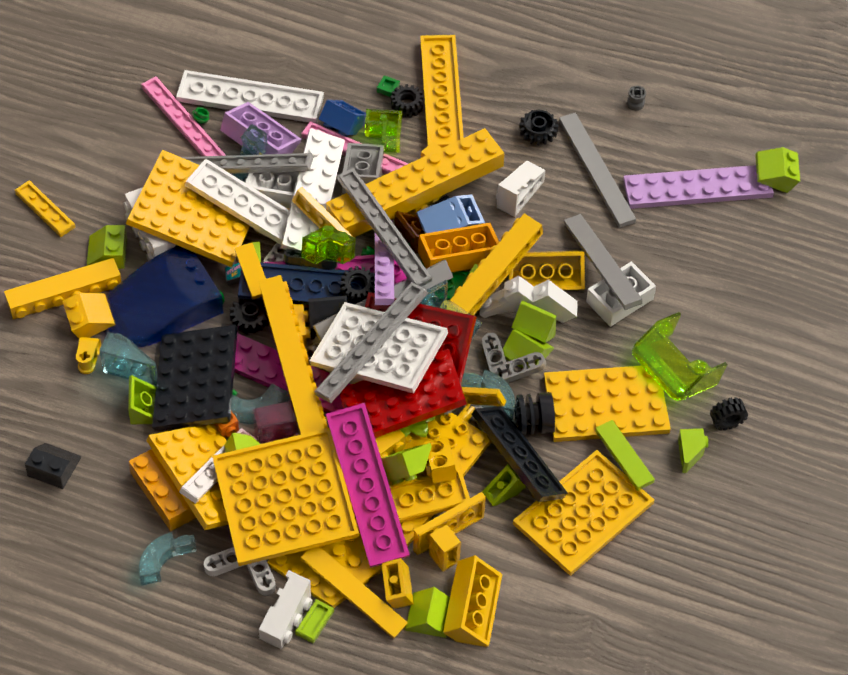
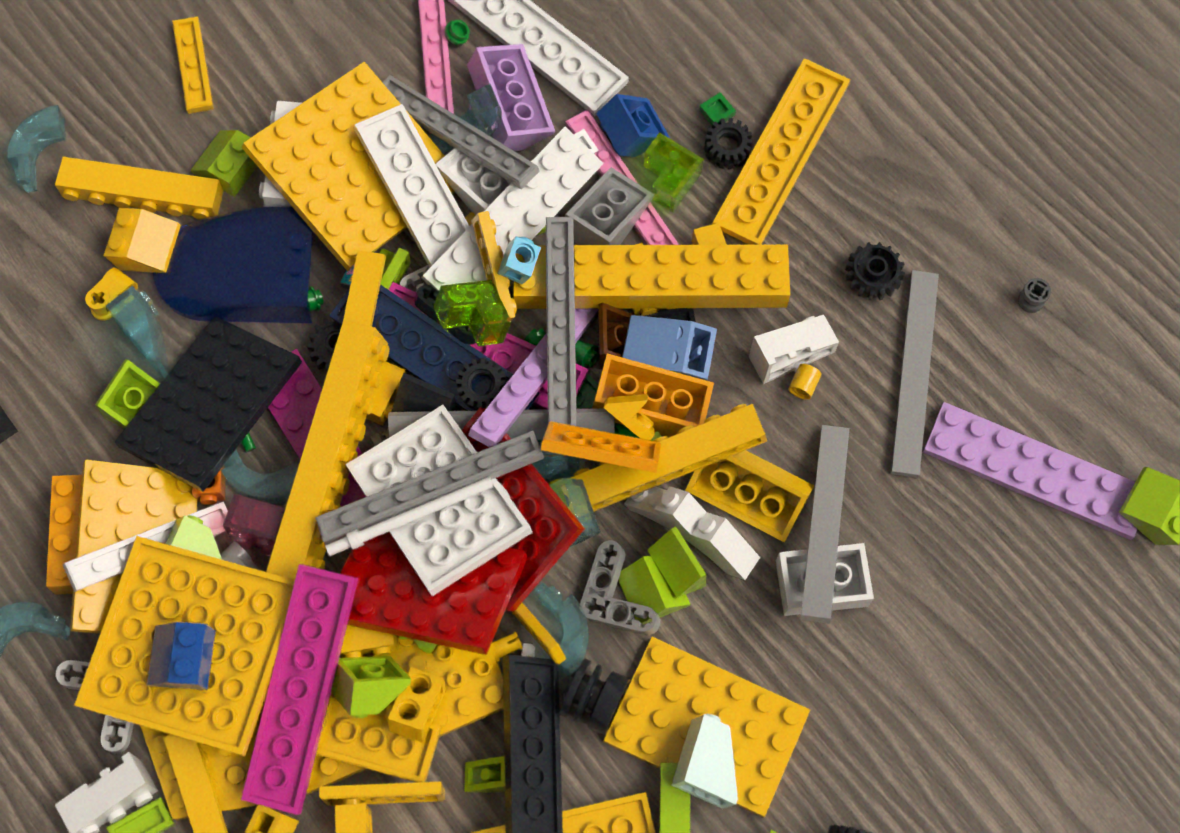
camera: 30 degrees right, 15 degrees up
(286, 498) = (181, 656): none -> blue slope
(338, 203) = (514, 269): none -> medium azure brick
(348, 387) = (356, 538): none -> white bar
(454, 255) = (625, 410): none -> yellow slope
(454, 273) = (601, 446): none -> light orange tile
(538, 202) = (804, 381): none -> yellow beam
(623, 412) = (708, 762): none -> light aqua slope
(669, 366) = (814, 726): clear neon green windscreen -> none

